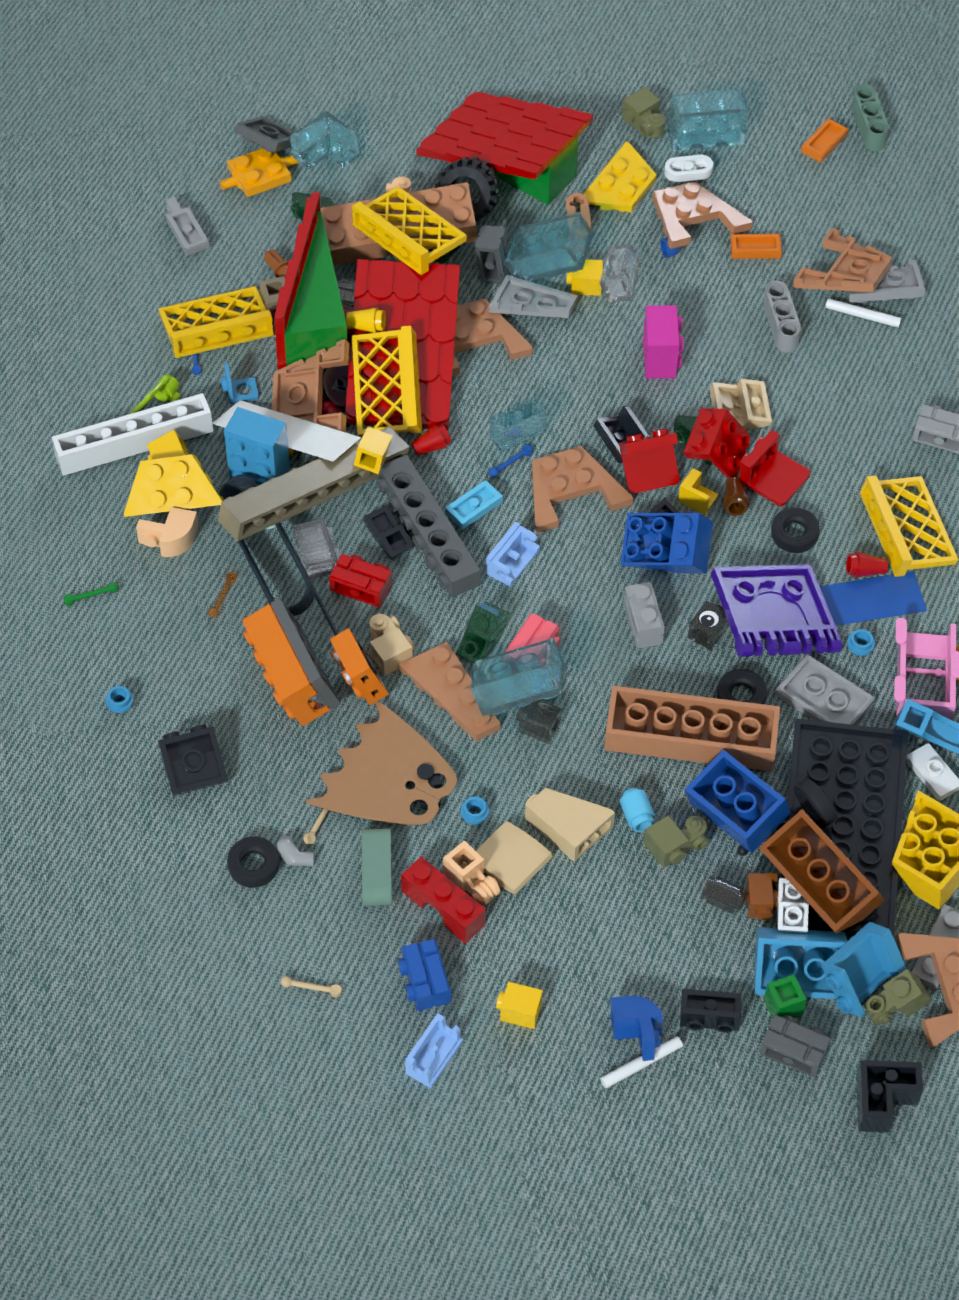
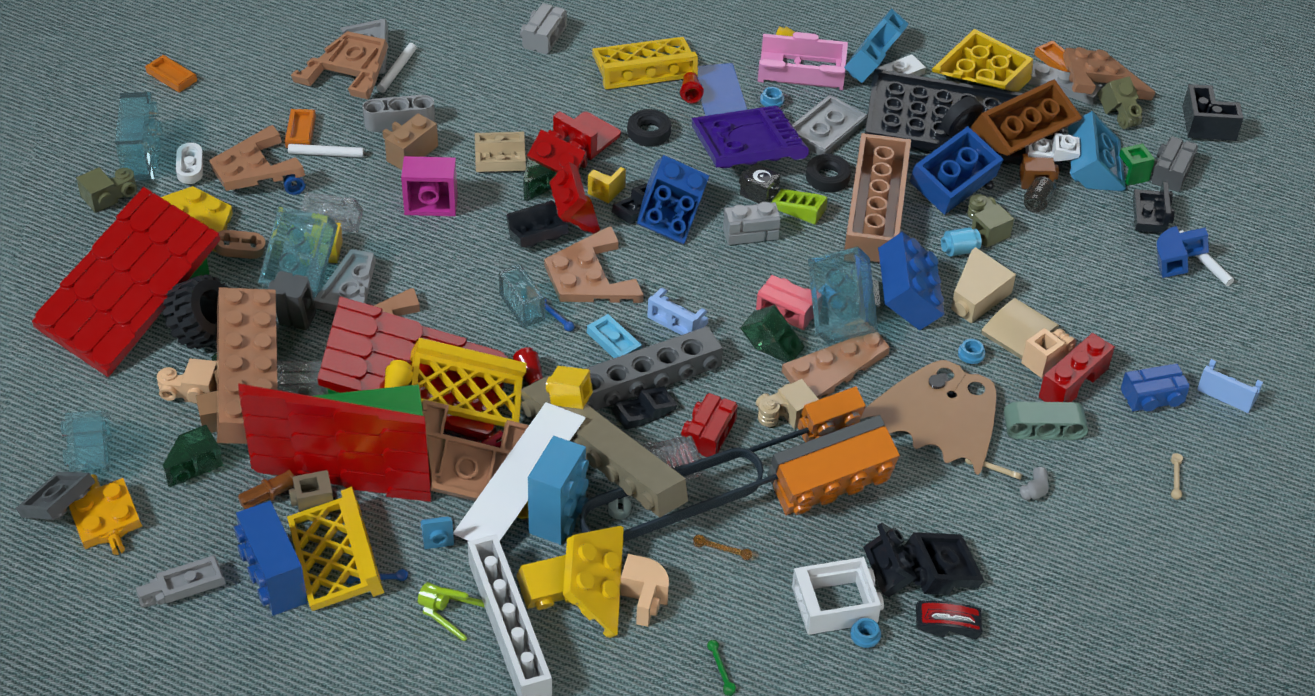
camera: 90 degrees left, 10 degrees down
(131, 765) = (945, 616): none -> slope
(141, 654) = (832, 574): none -> white window
(193, 712) = (890, 560): none -> black bracket
(196, 270) = (270, 558): none -> blue brick
(258, 877) = (1045, 531): black tyre -> none
(394, 237) = (293, 343): yellow fence -> none
(520, 1005) = (1172, 325): yellow brick -> none
(554, 746) = (911, 281): none -> blue brick
(681, 680) = (806, 207): none -> lime slope
(725, 268) = (325, 150): none -> white bar
(735, 497) = (611, 159): reddish brown cone -> none
(736, 327) = (413, 138): none -> medium nougat brick
(862, 967) = (1124, 126): dark azure panel -> none
(869, 117) = (154, 37): sand green beam -> none

